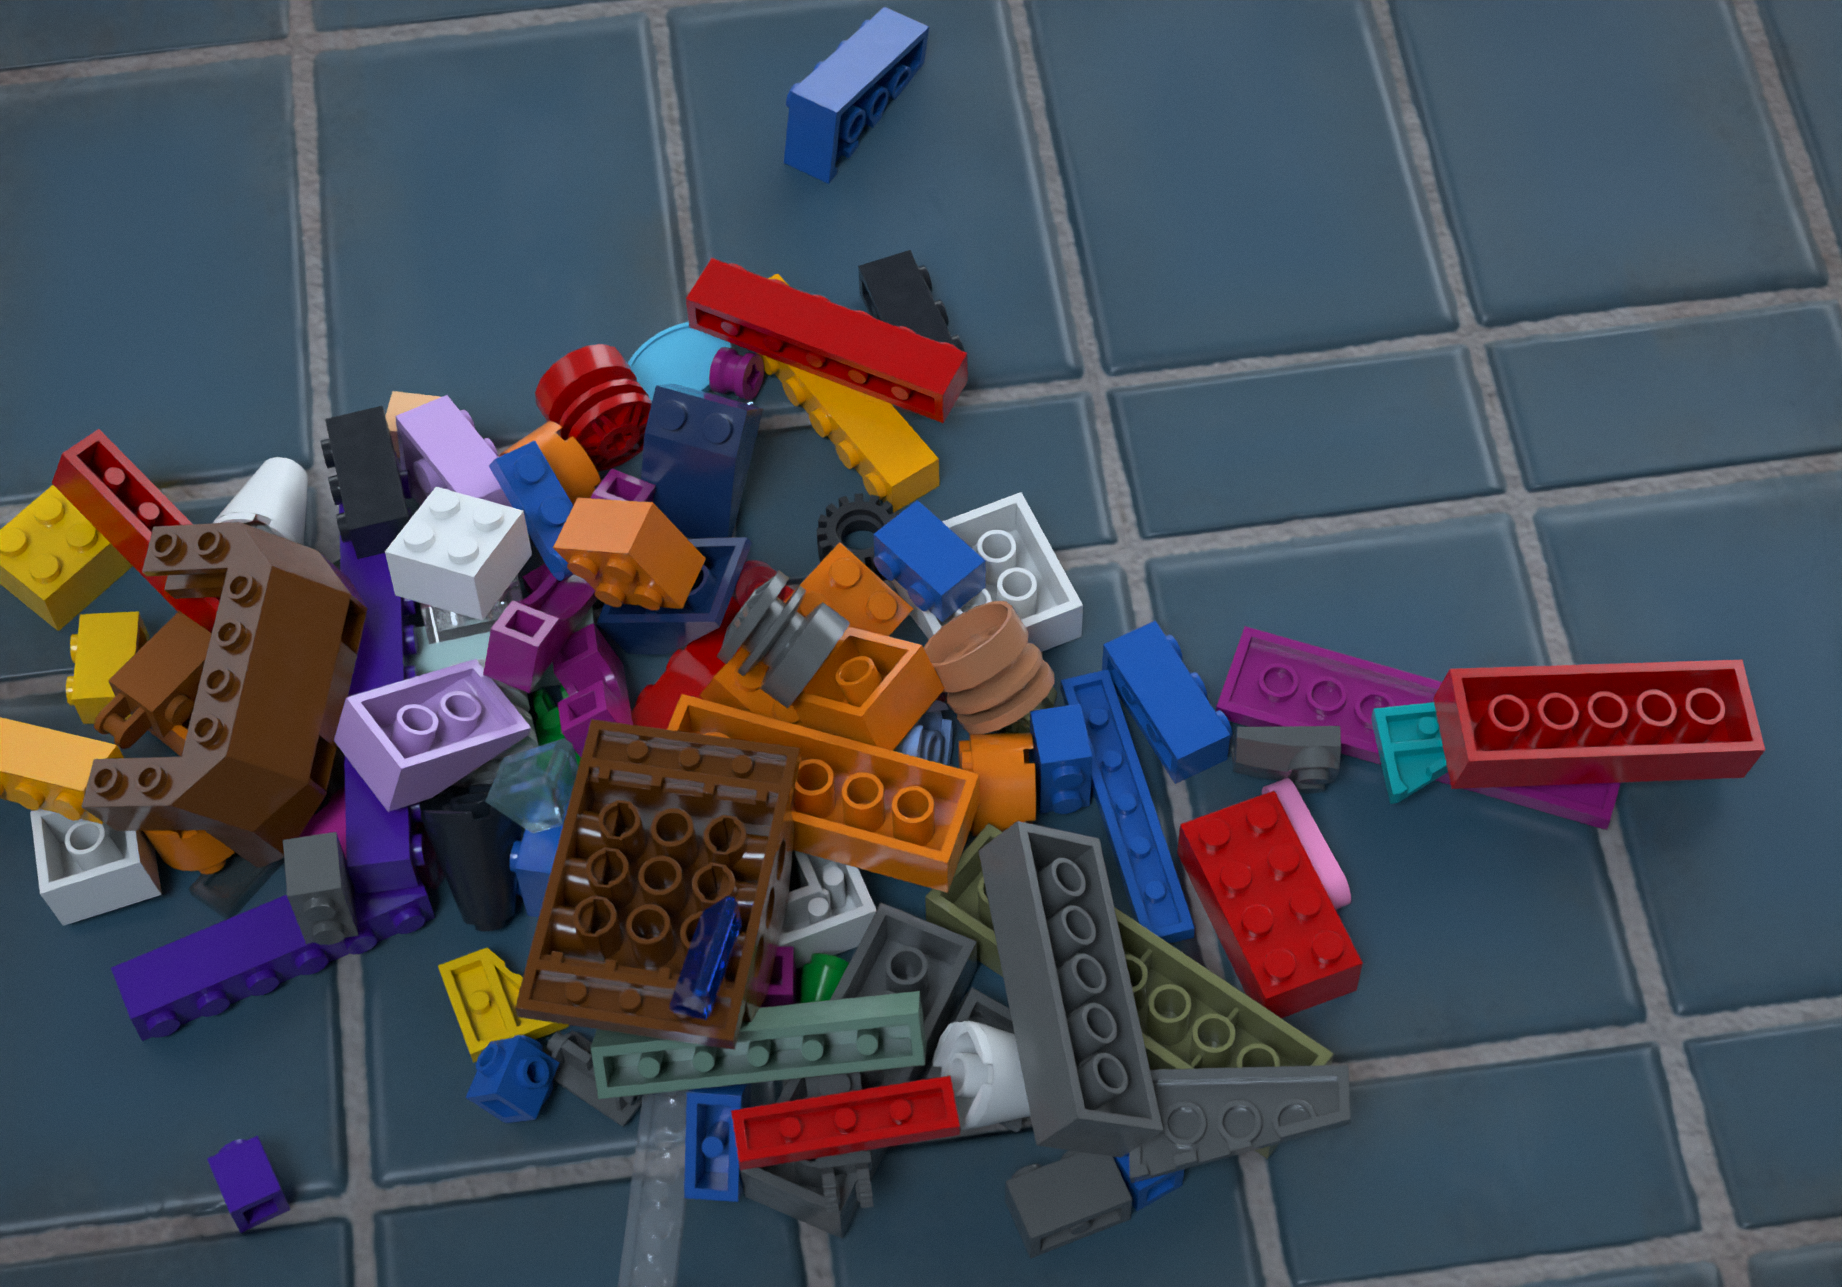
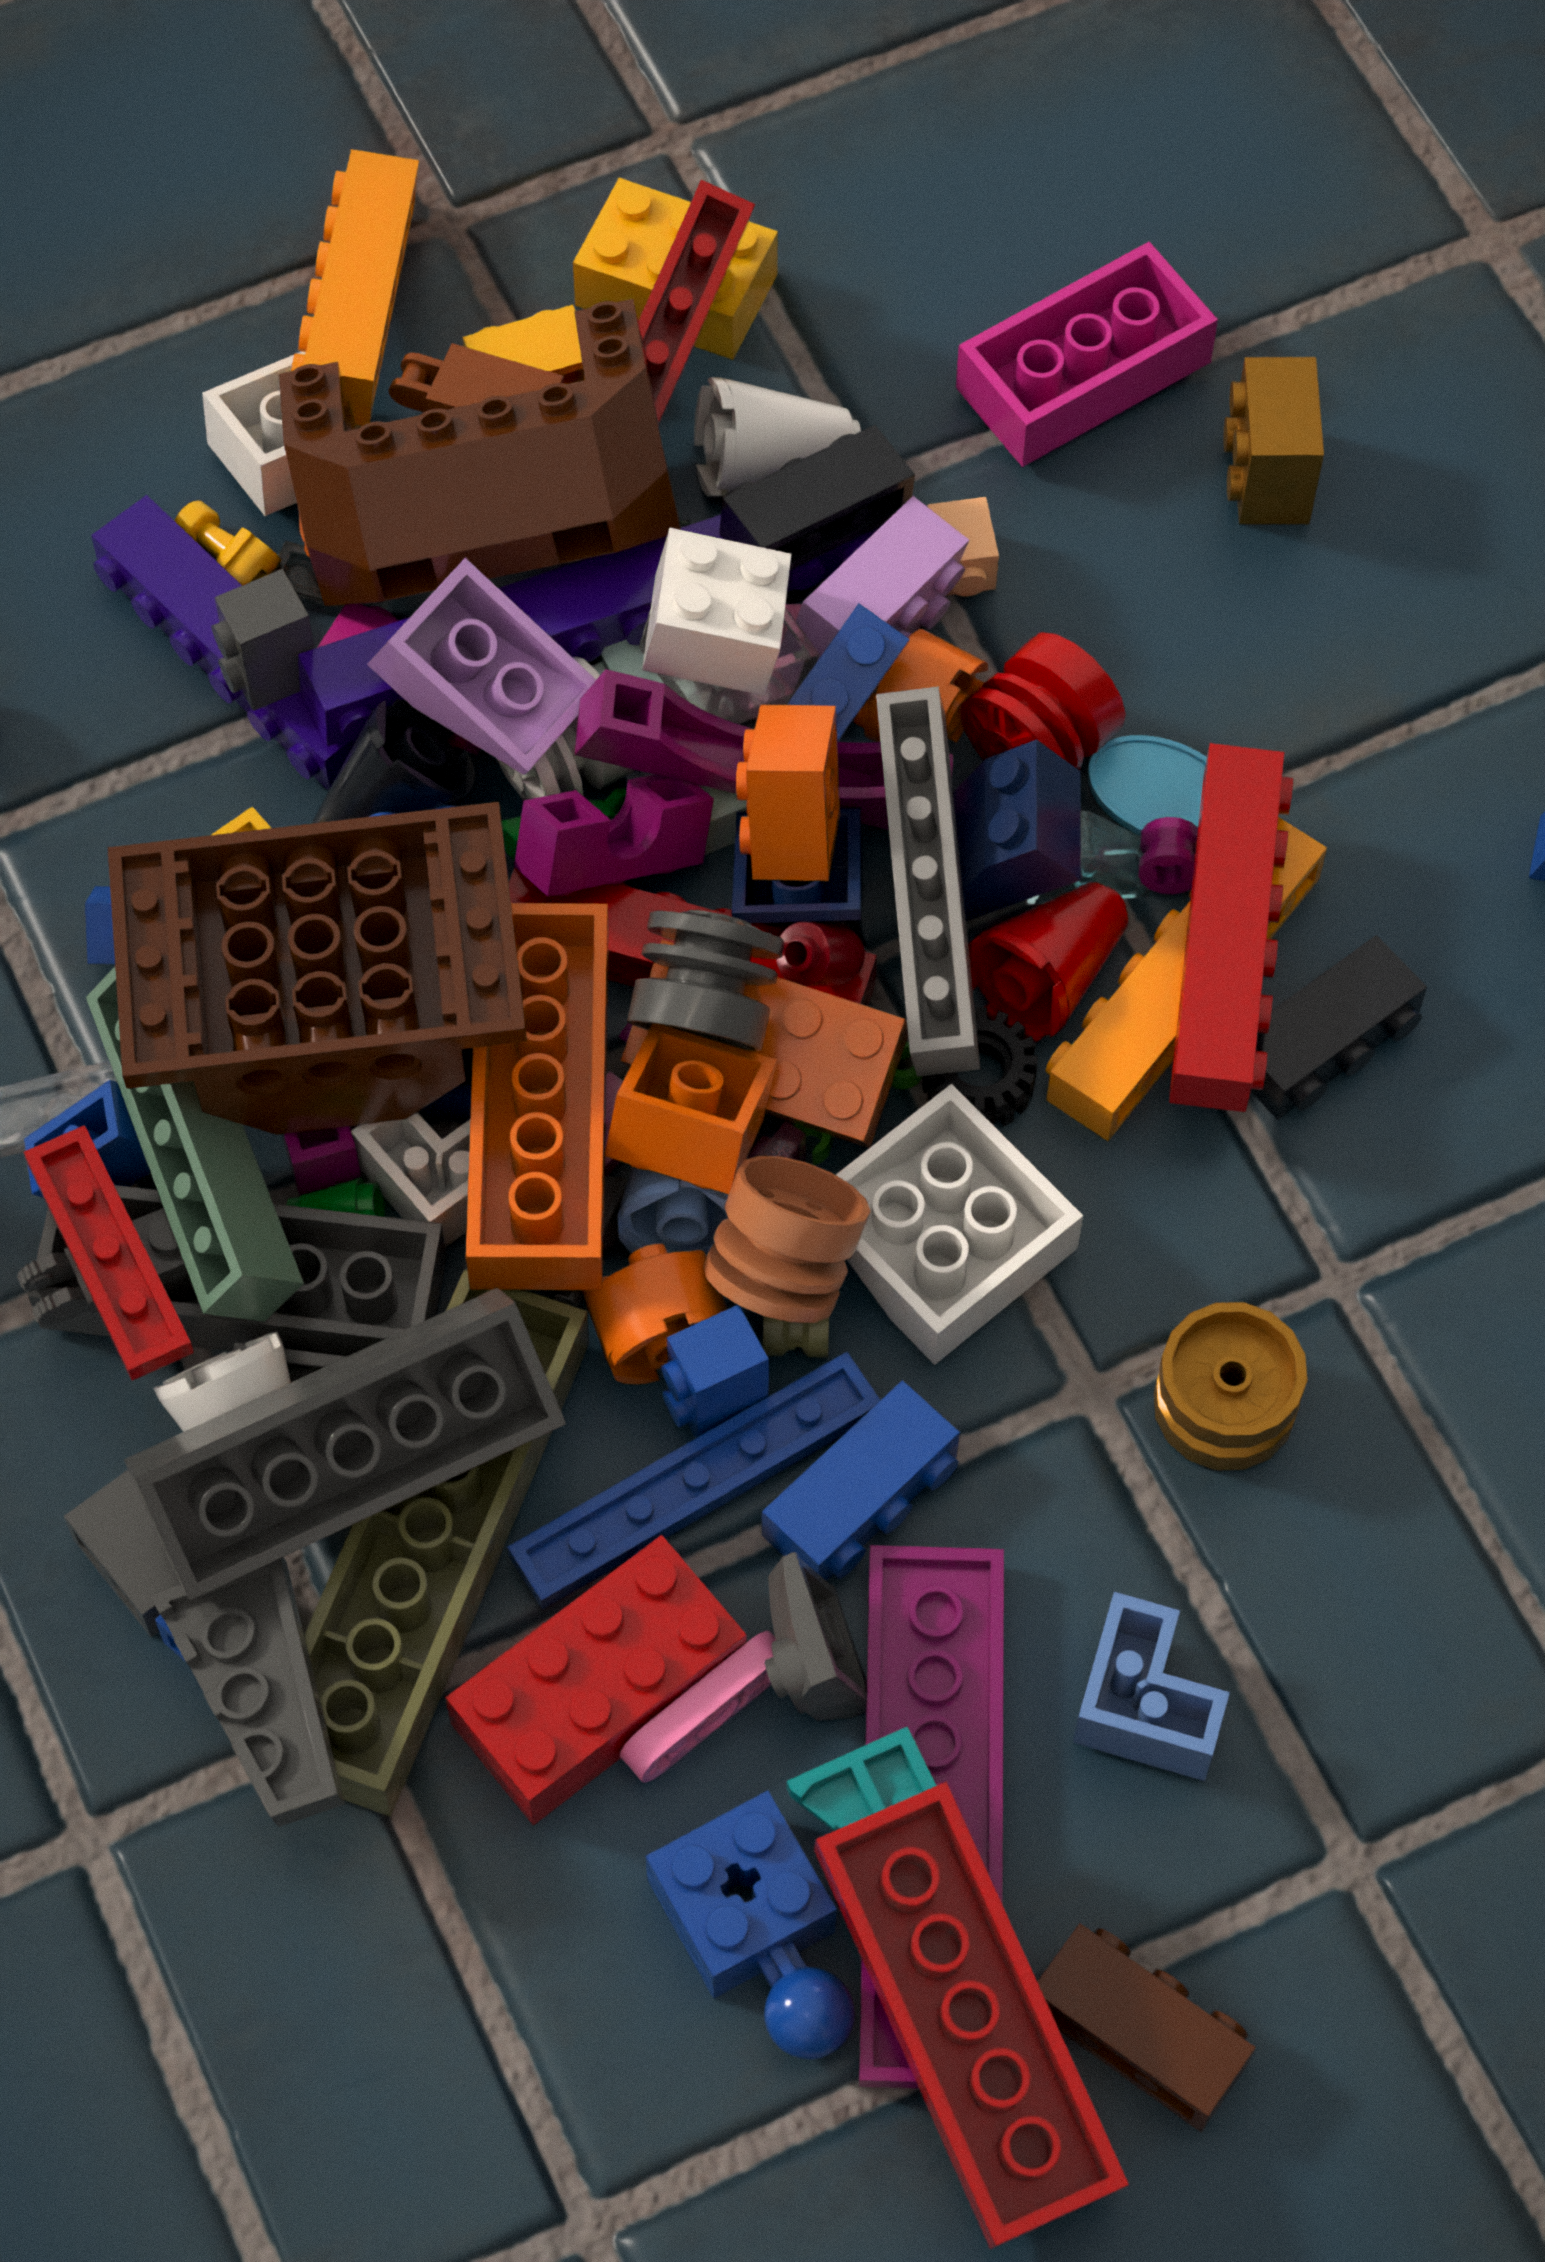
camera: 70 degrees right, 5 degrees up
(191, 915) = (239, 555): none -> yellow leg
(292, 298) = (1085, 353): none -> dark pink brick
(429, 202) = (1274, 440): none -> pearl gold brick
(536, 785) = (425, 780): clear light blue slope -> none
(707, 960) = (205, 1017): clear blue slope -> none
(725, 496) = (927, 882): none -> light grey brick
(799, 470) = (1047, 957): none -> red cone
(929, 561) = (920, 1130): blue brick -> none
(1169, 454) = (1229, 1386): none -> pearl gold wheel
(1377, 577) = (1137, 1707): none -> medium blue brick
(1466, 860) = (733, 1941): none -> blue brick
(1633, 628) = (1144, 2025): none -> reddish brown brick

